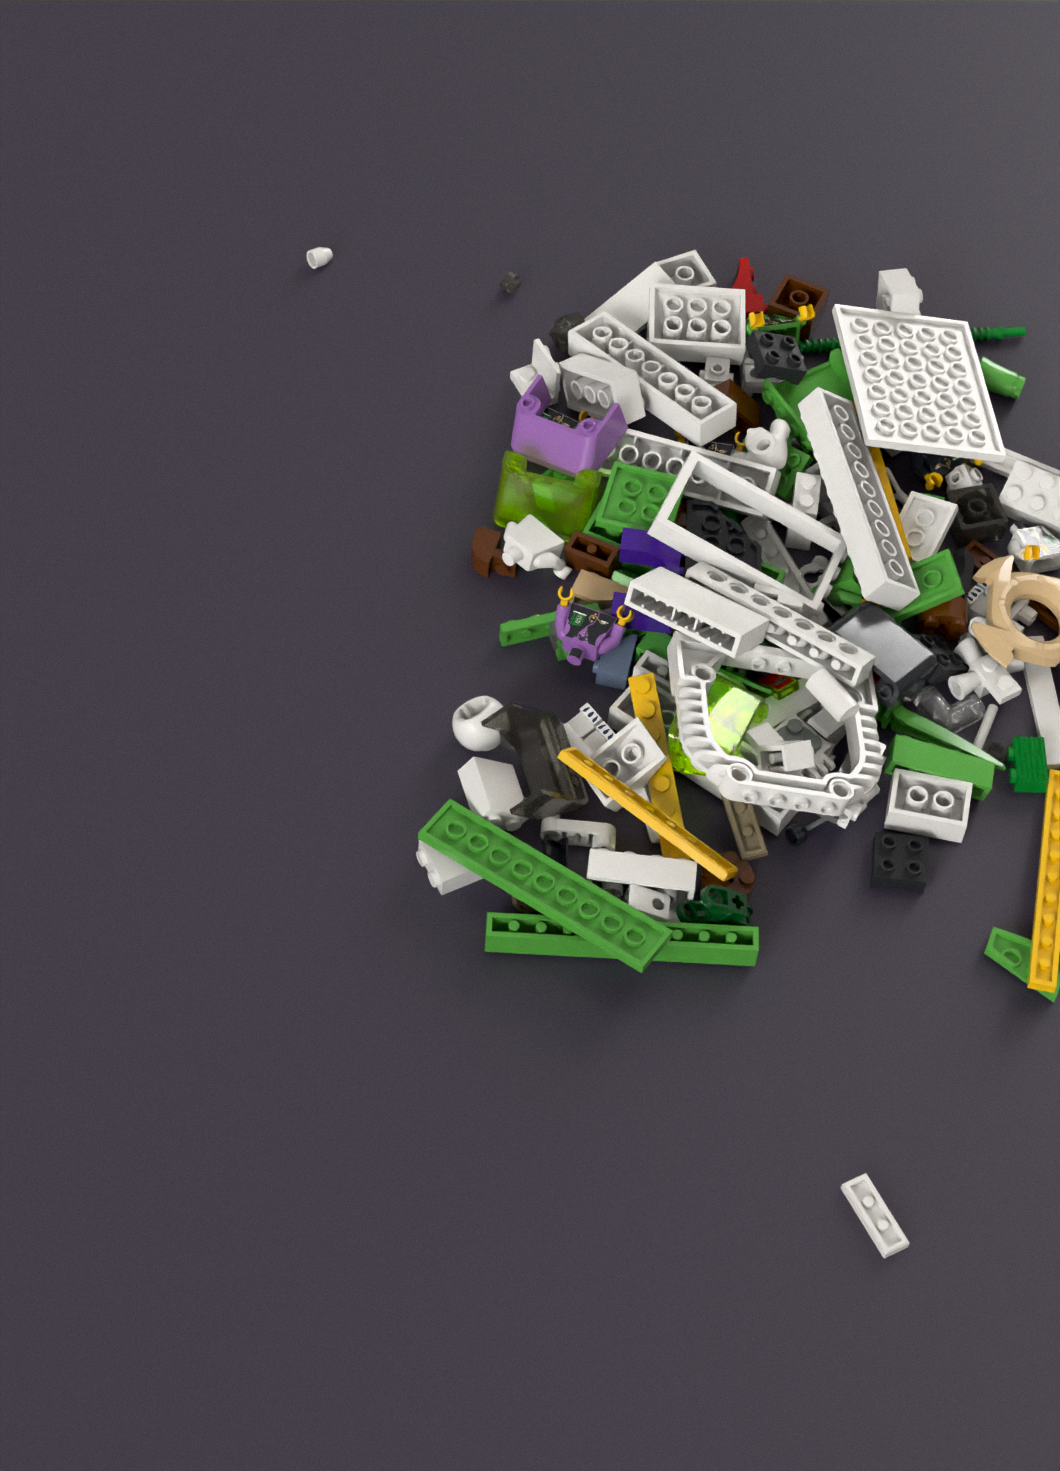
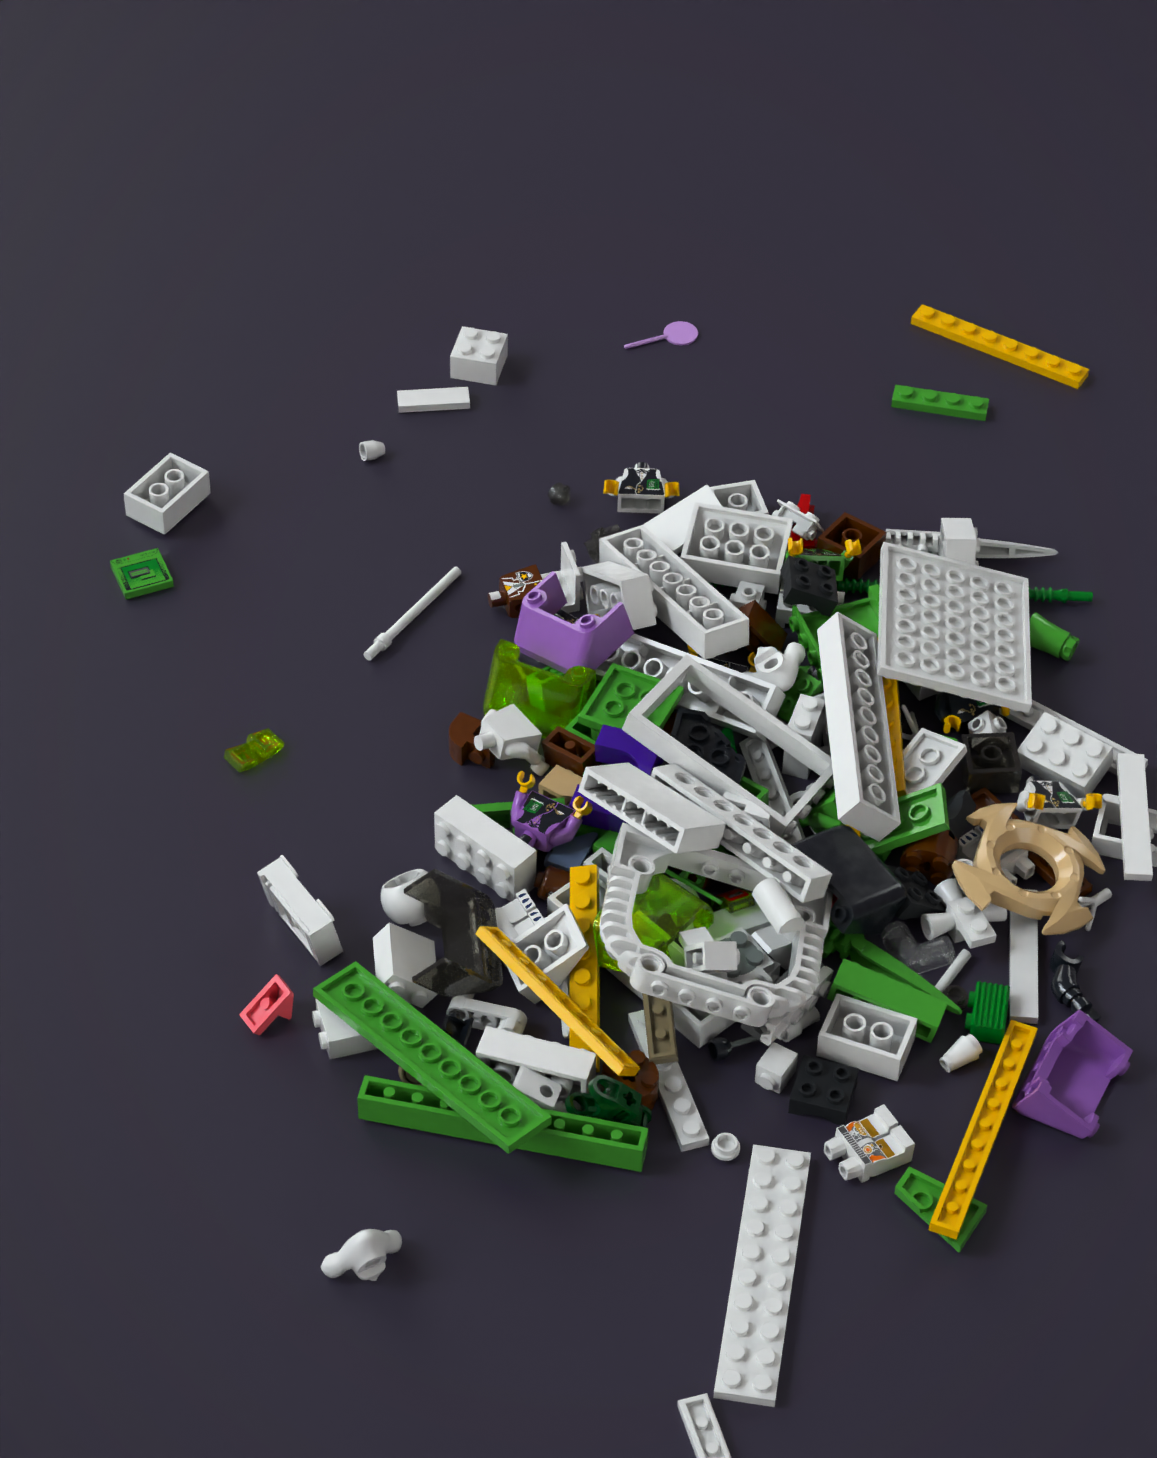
camera: 15 degrees right, 10 degrees down
(131, 415) = (141, 573): none -> bright green tile
(136, 328) = (167, 493): none -> white brick
(290, 589) = (256, 750): none -> clear neon green slope
(364, 195) = (433, 399): none -> white tile
(375, 850) = (270, 1002): none -> coral slope
(381, 752) = (300, 911): none -> white piece
(383, 457) = (385, 639): none -> white bar
(398, 144) = (478, 355): none -> white brick
(499, 392) = (514, 588): none -> reddish brown torso
(527, 1088) = (363, 1254): none -> white head
(537, 665) = (484, 848): none -> white brick
(577, 96) = (677, 333): none -> lavender piece
(589, 270) = (641, 490): none -> torso
(606, 690) = (550, 881): none -> reddish brown head
(753, 290) = (805, 523): none -> white hinge
(766, 885) = (673, 1094): none -> white plate
(824, 930) = (725, 1147): none -> white plate
(840, 144) = (940, 402): none -> bright green plate
(852, 846) = (776, 1068): none -> white brick
(865, 293) = (929, 542): none -> white piece
(881, 78) = (1000, 346): none -> yellow plate
(887, 1050) = (762, 1276): none -> white plate
(954, 911) = (870, 1146): none -> white hips
(1013, 807) = (962, 1052): none -> white cone

